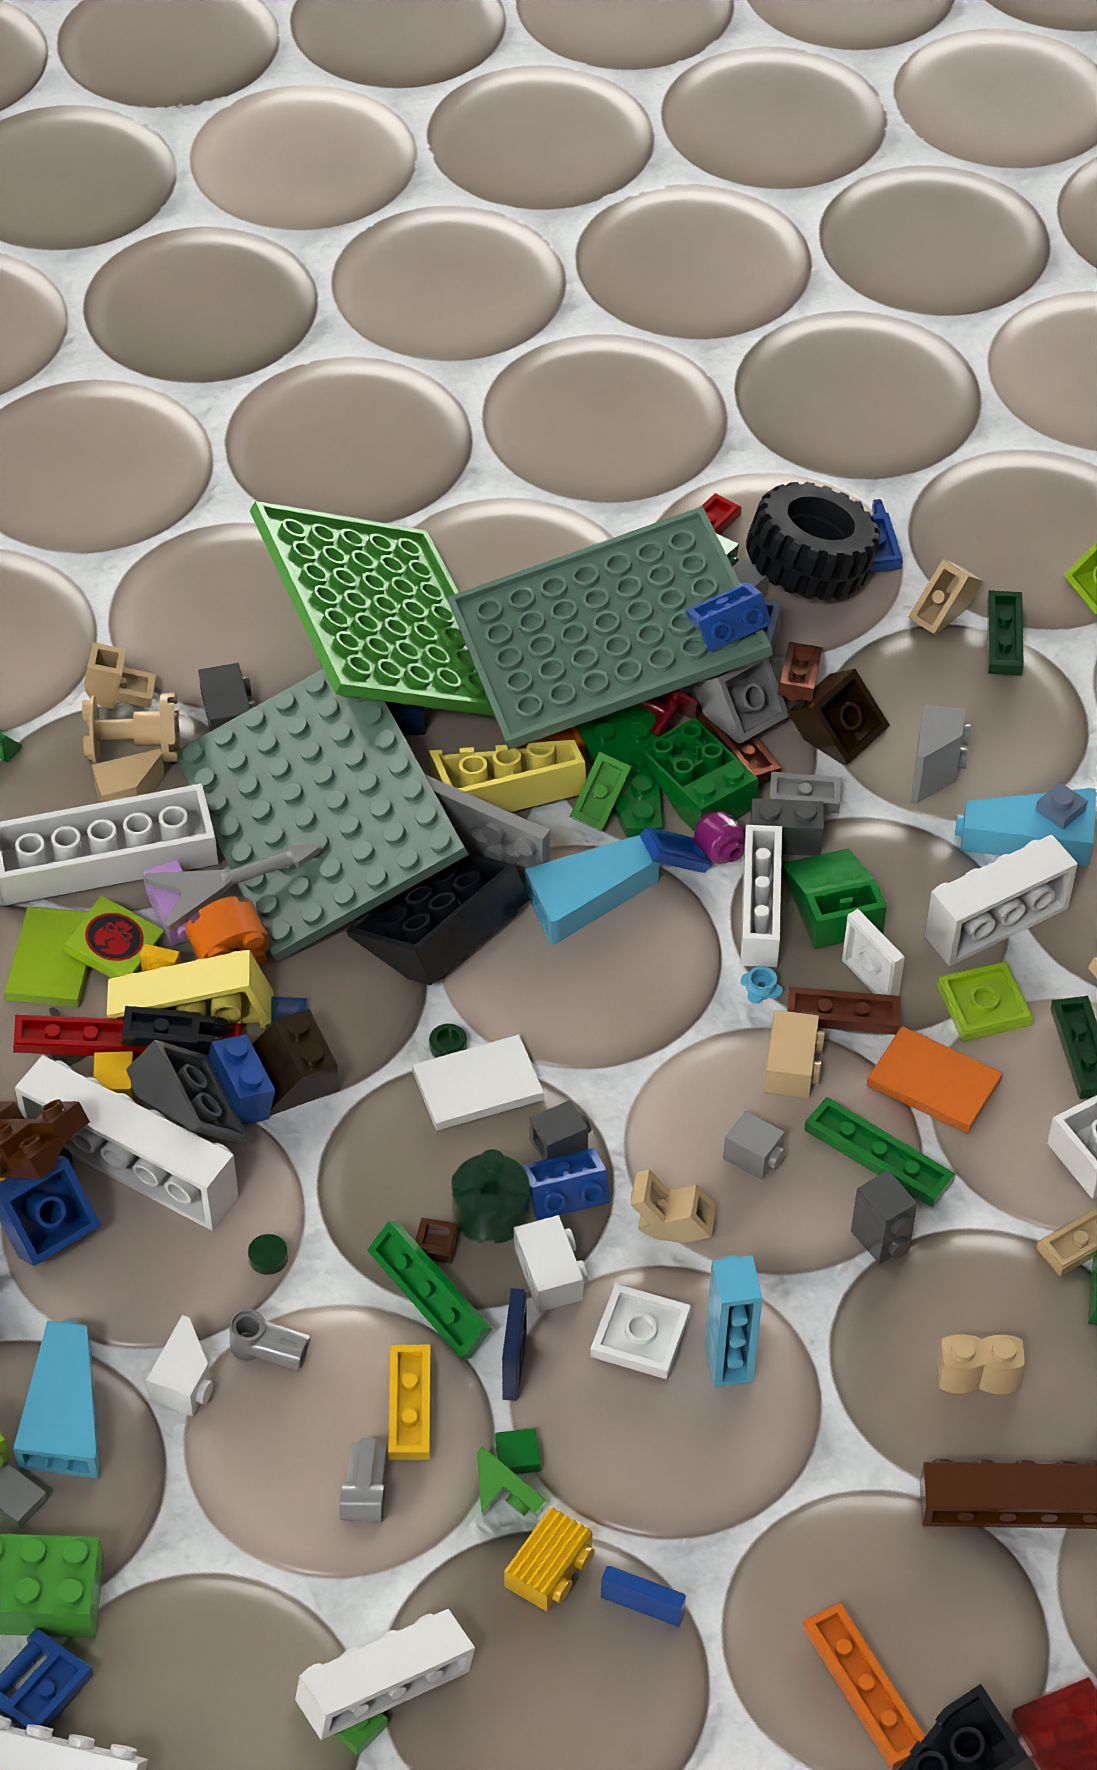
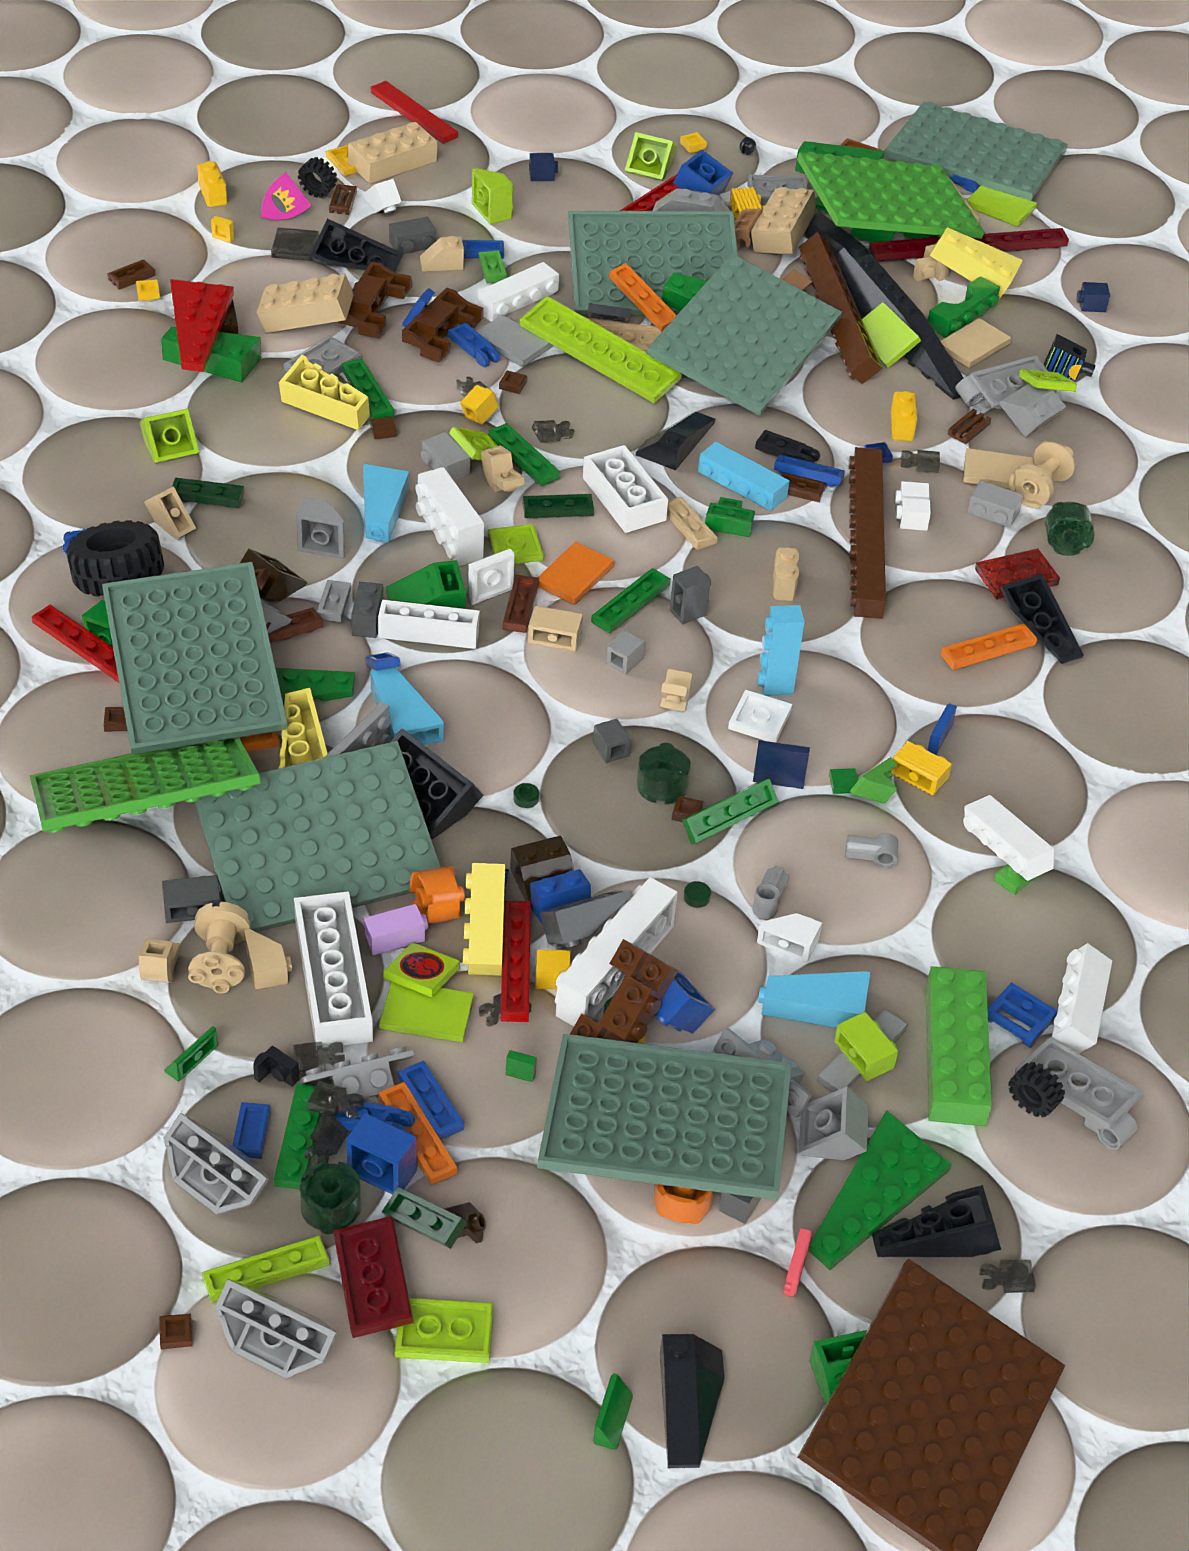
camera: 90 degrees left, 5 degrees down
(155, 957) = (449, 940): yellow plate -> none
(173, 1027) = (520, 928): black hinge -> none
(203, 887) = (396, 898): light grey piece -> none
(409, 1402) = (812, 825): yellow plate -> none
(477, 1082) = (562, 782): white tile -> none
(549, 1263) = (713, 752): white brick -> none
(567, 1183) = (644, 734): blue bracket -> none
(600, 791) = (324, 694): bright green plate -> none
(699, 773) = (318, 643): green slope -> none
(719, 837) = (372, 640): magenta head -> none
(730, 616) = (221, 574): blue bracket -> none
(761, 976) = (494, 638): medium azure plate -> none
(1061, 805) = (379, 477): sand blue plate -> none

